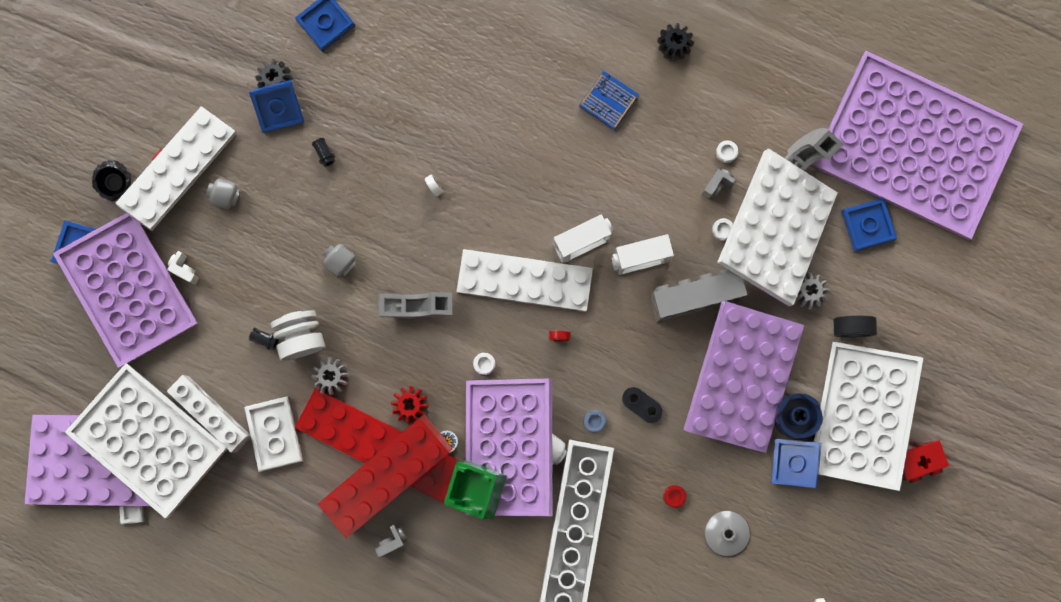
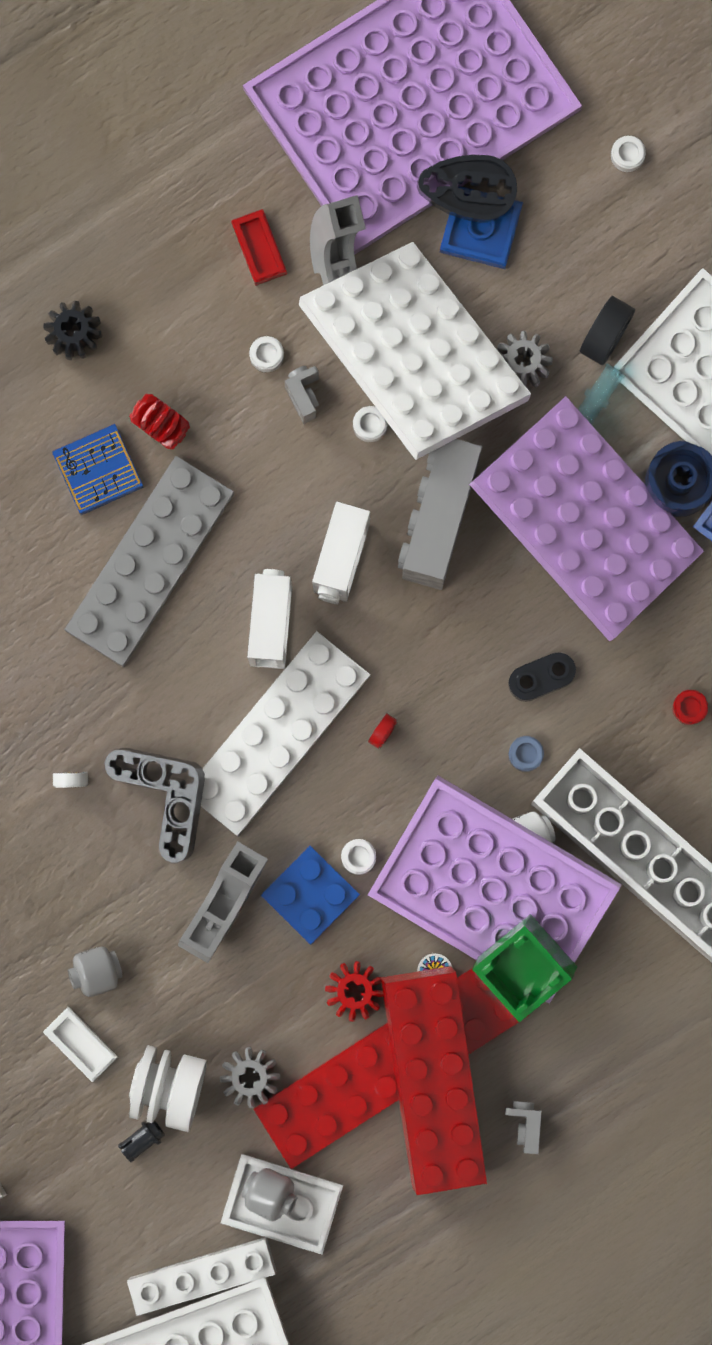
camera: 55 degrees left, 0 degrees up
(272, 423) = (269, 1194): none -> light grey head
(296, 276) = (80, 1044): none -> white tile
(448, 350) = (310, 895): none -> blue plate
(460, 245) = (176, 792): none -> beam
(576, 157) = (149, 561): none -> light grey plate
(654, 116) = (159, 421): none -> red gear
(782, 113) = (259, 247): none -> red tile
(818, 343) = (599, 394): none -> clear light blue pin
(899, 200) = (476, 168): none -> black piece
(960, 280) = (628, 153): none -> white tile

